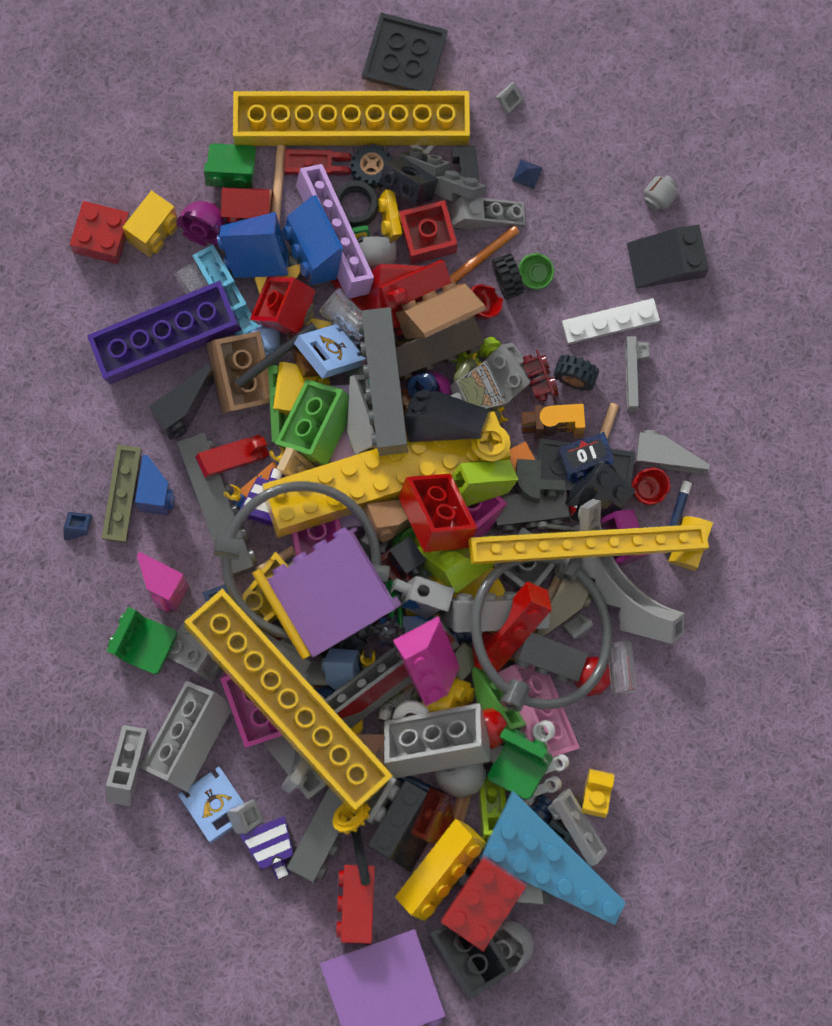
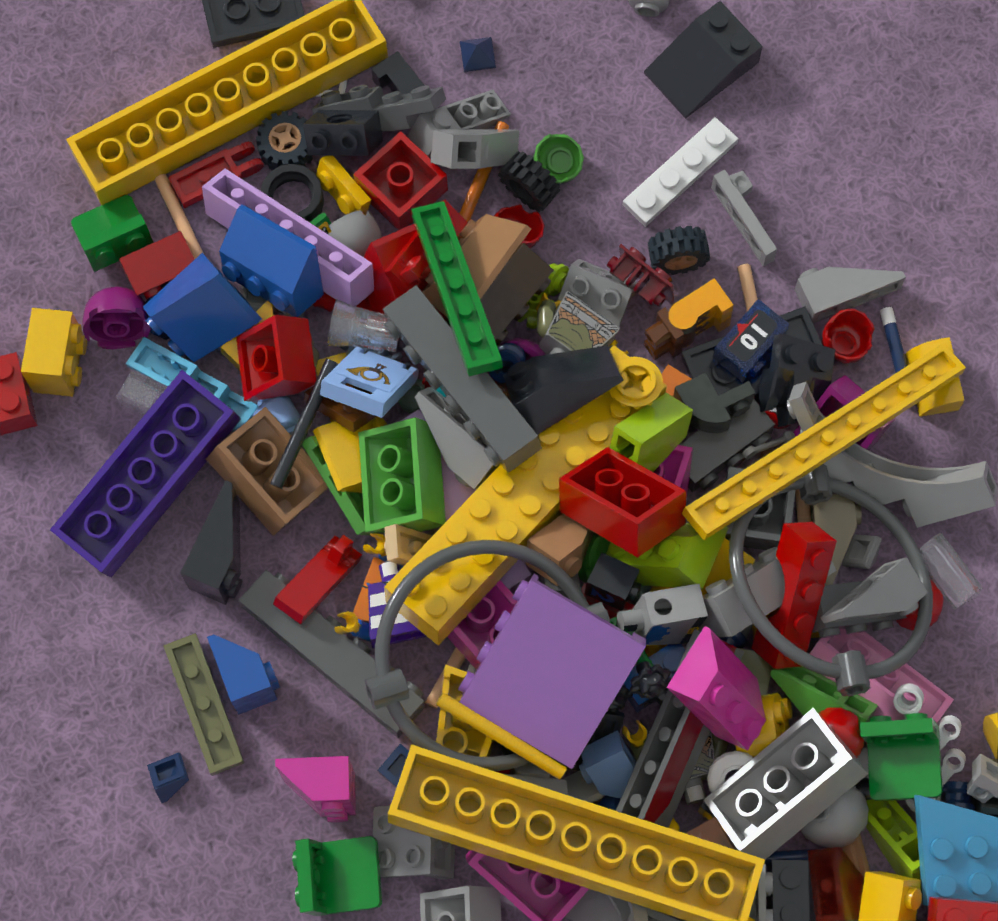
camera: 25 degrees left, 5 degrees down
(413, 323) = (456, 289): none -> green plate
(484, 236) = (473, 147): none -> light grey slope
(570, 658) = (885, 592): none -> light grey slope

